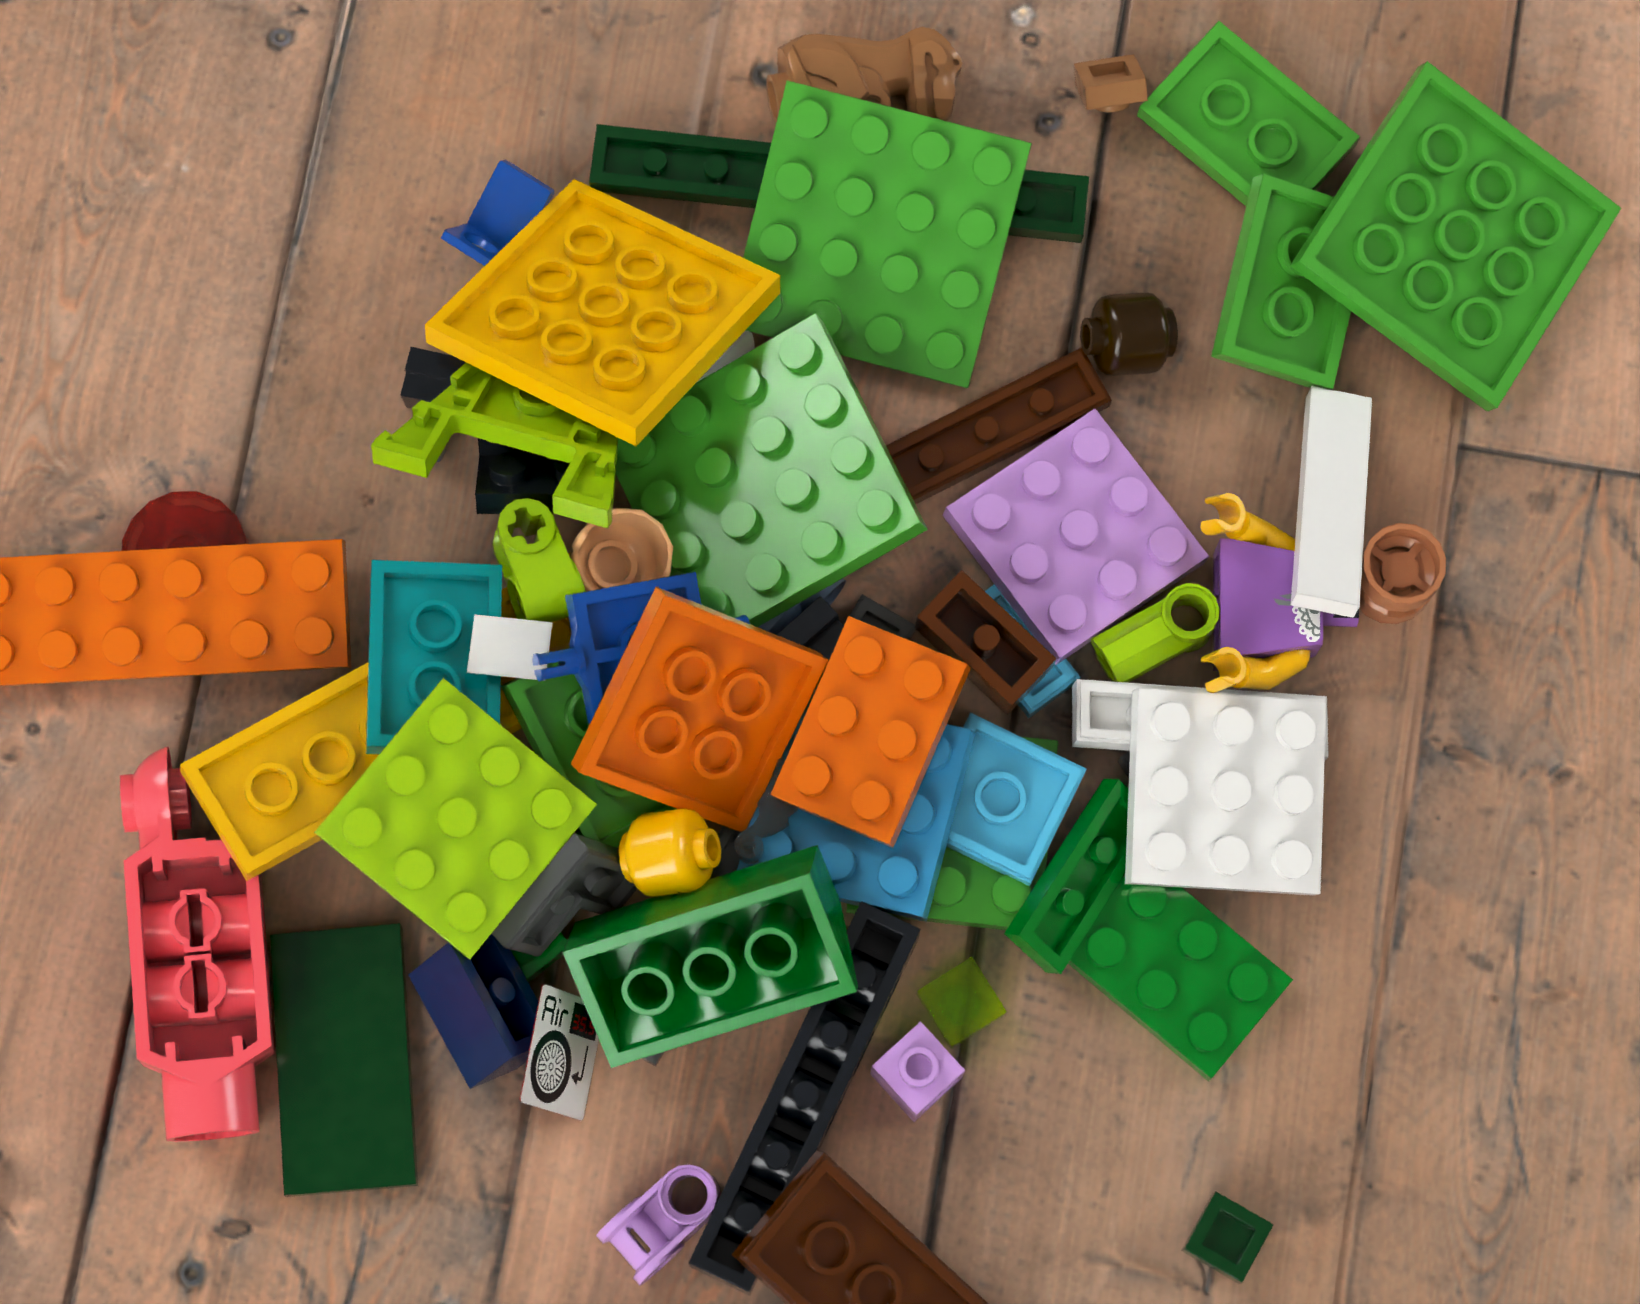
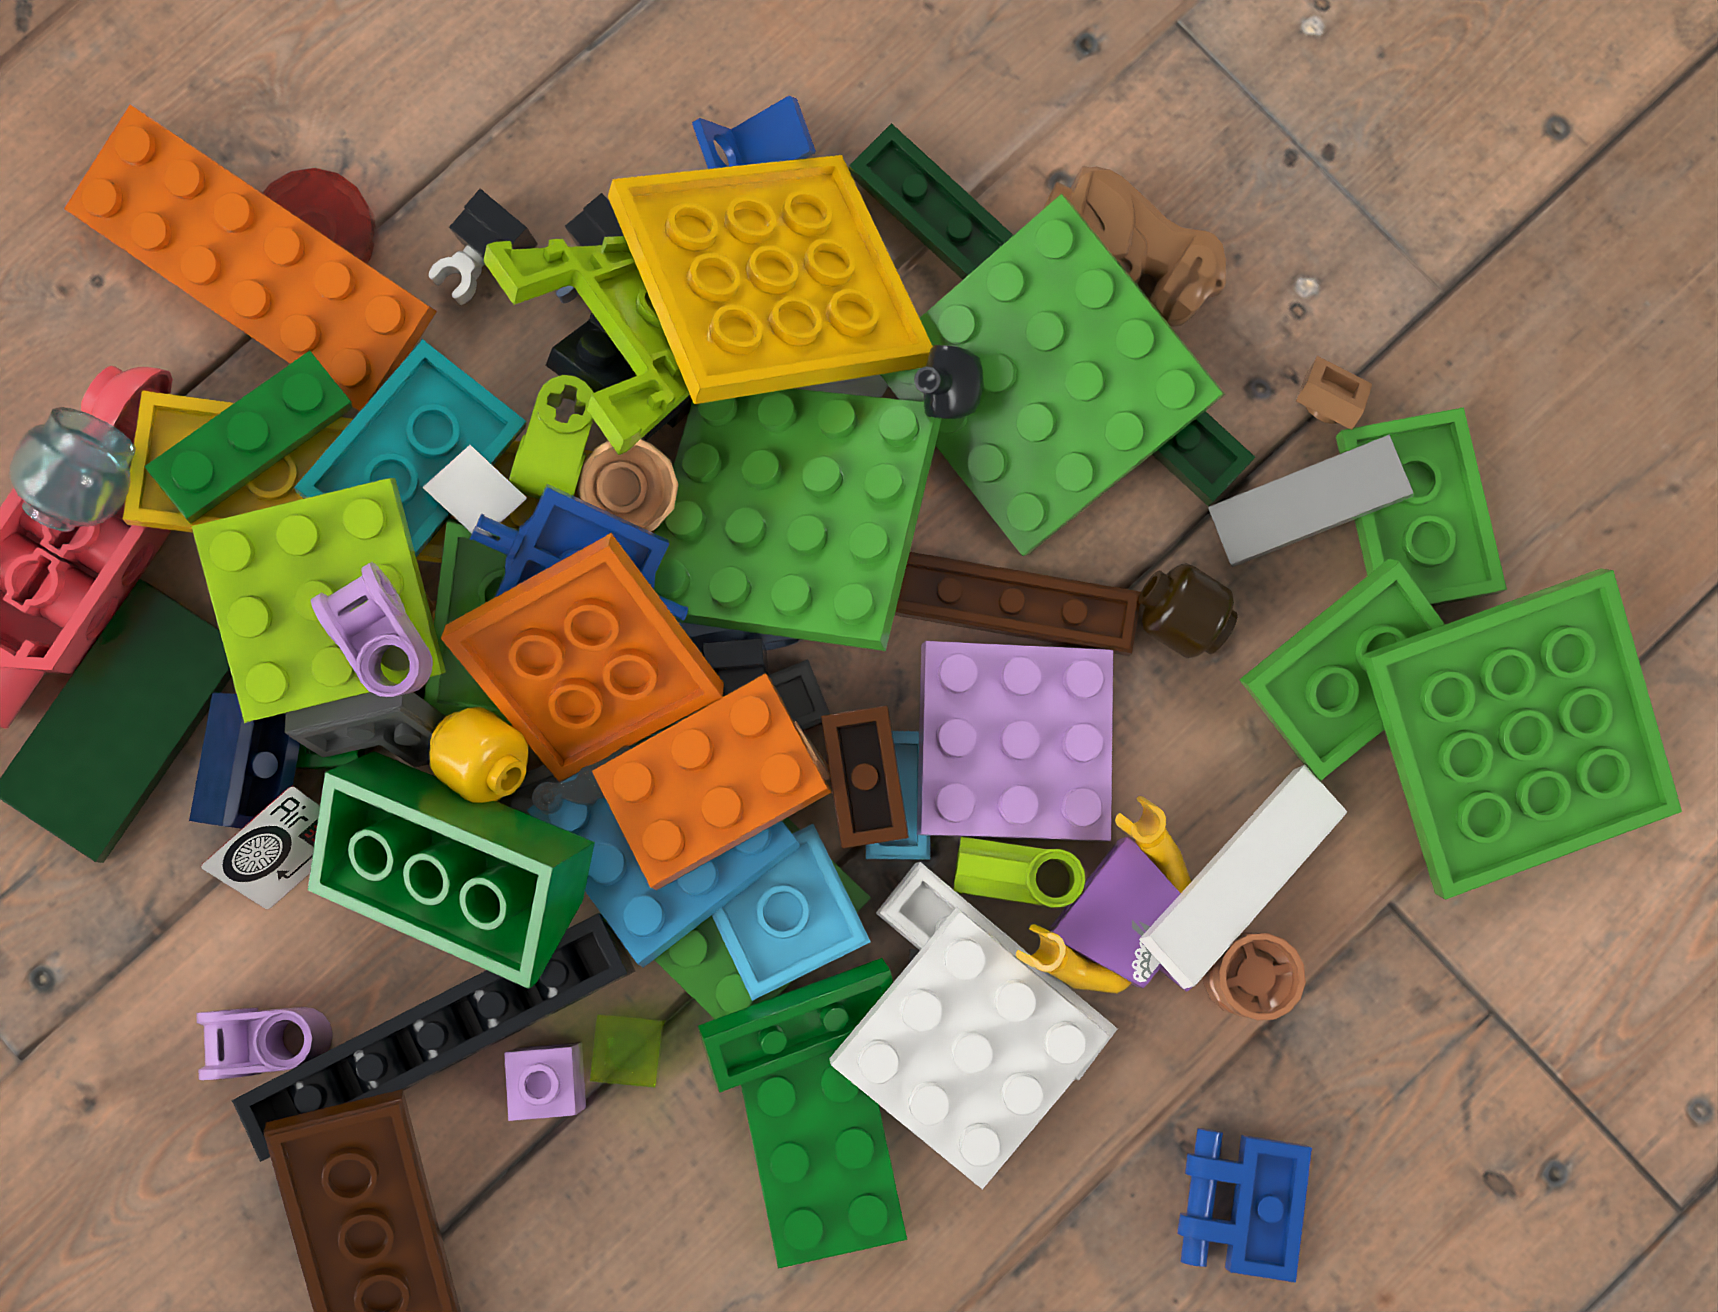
camera: 35 degrees right, 5 degrees up
(179, 864) = (72, 470): none -> clear light blue piece
(295, 737) = (249, 437): none -> green plate
(337, 453) = (478, 225): none -> black piece
(526, 798) = (372, 629): none -> lavender piece
(814, 288) = (950, 382): none -> black piece
(1158, 179) = (1311, 501): none -> light grey tile
(1544, 744) = (1265, 1207): none -> blue plate

